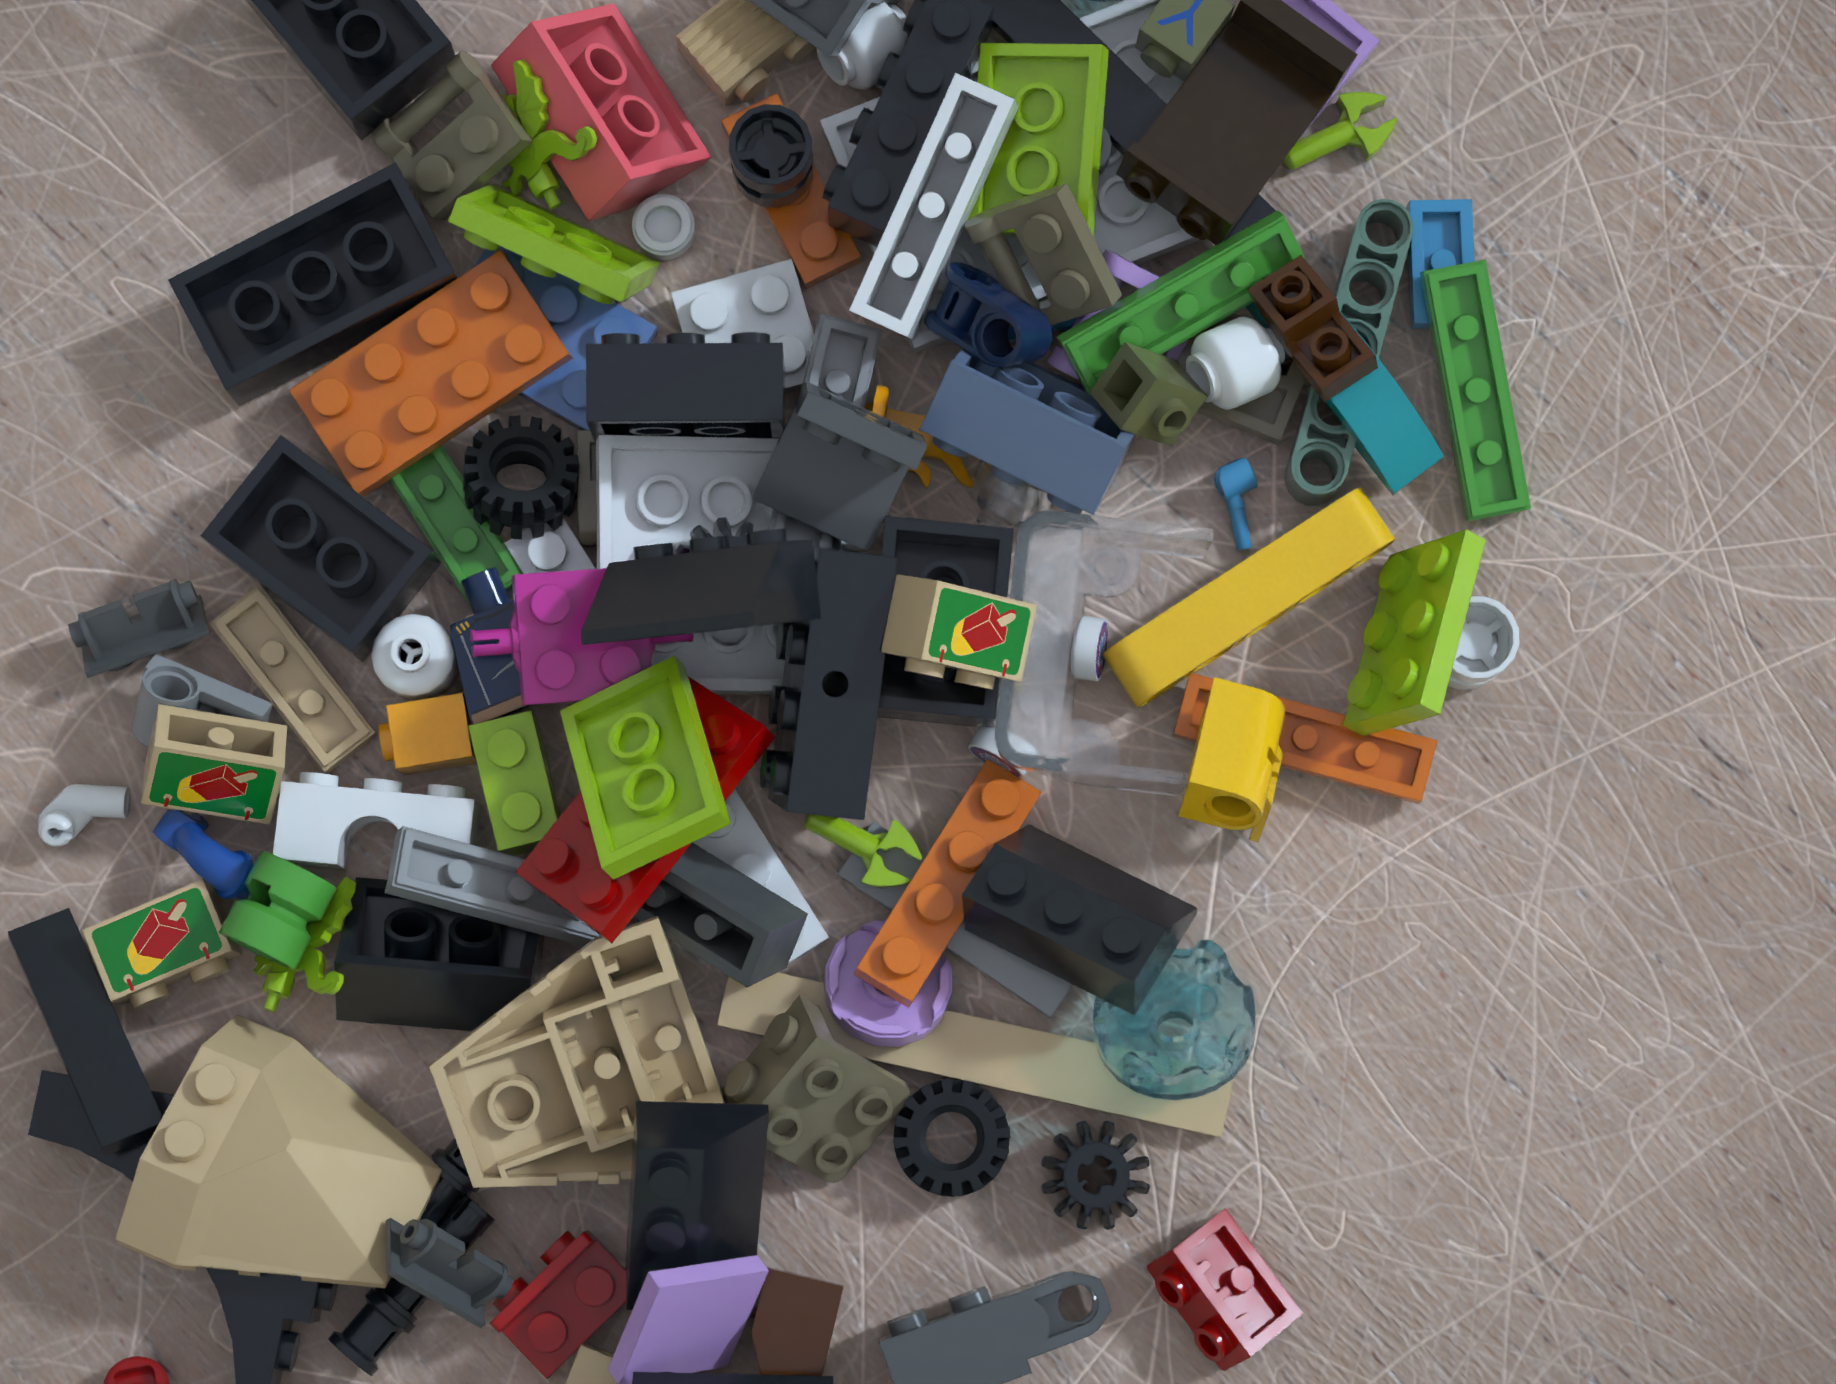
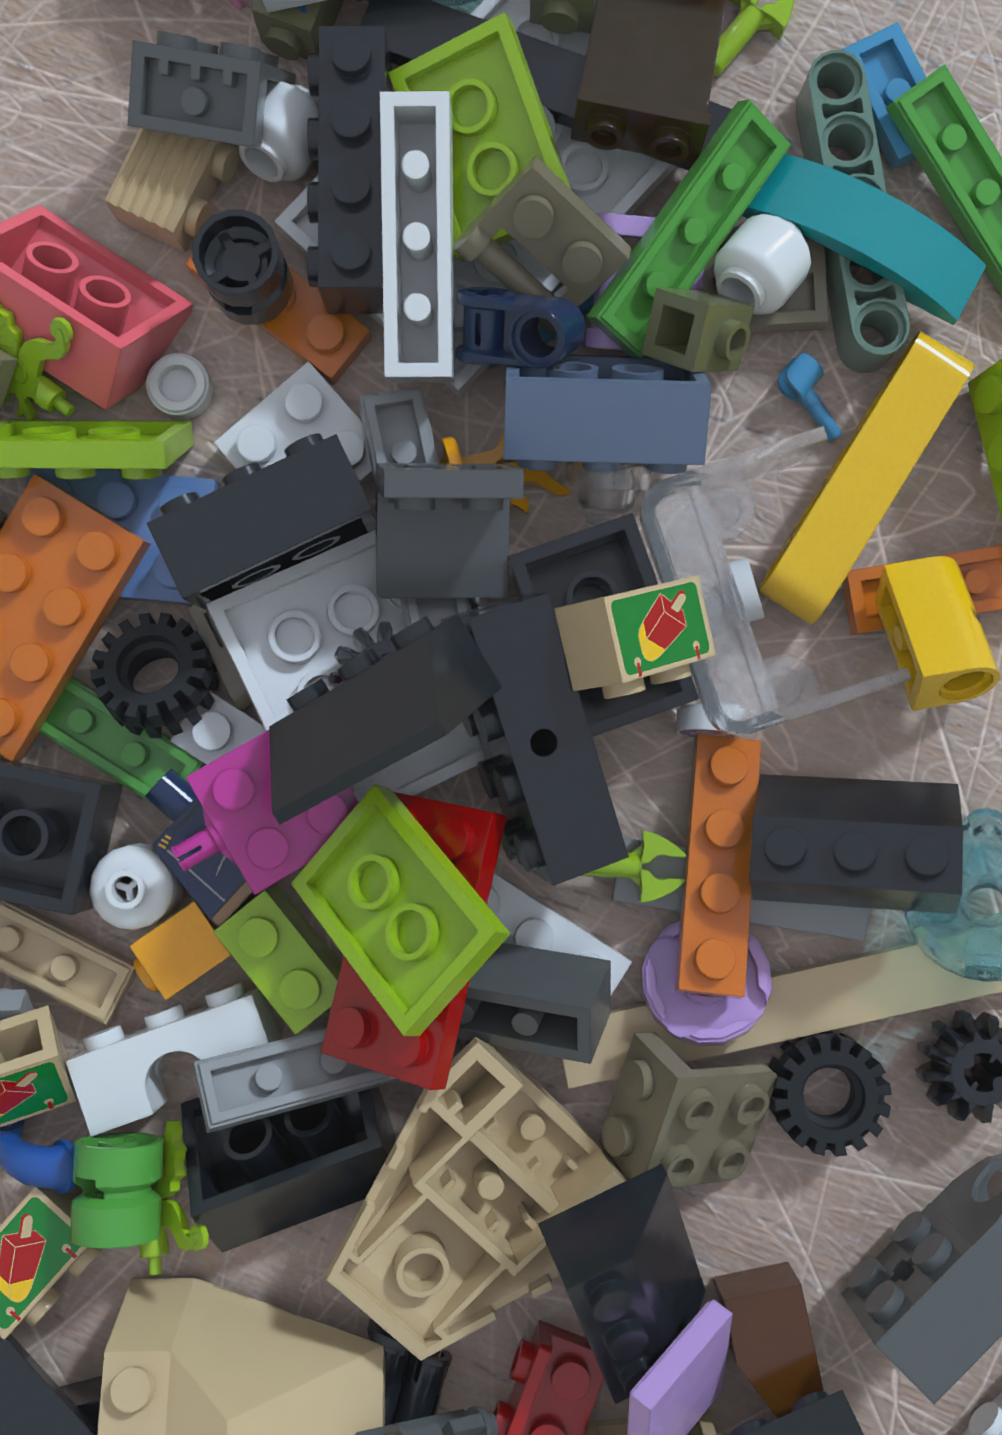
camera: 20 degrees left, 5 degrees up
(1312, 328) = (821, 198): reddish brown slope -> none

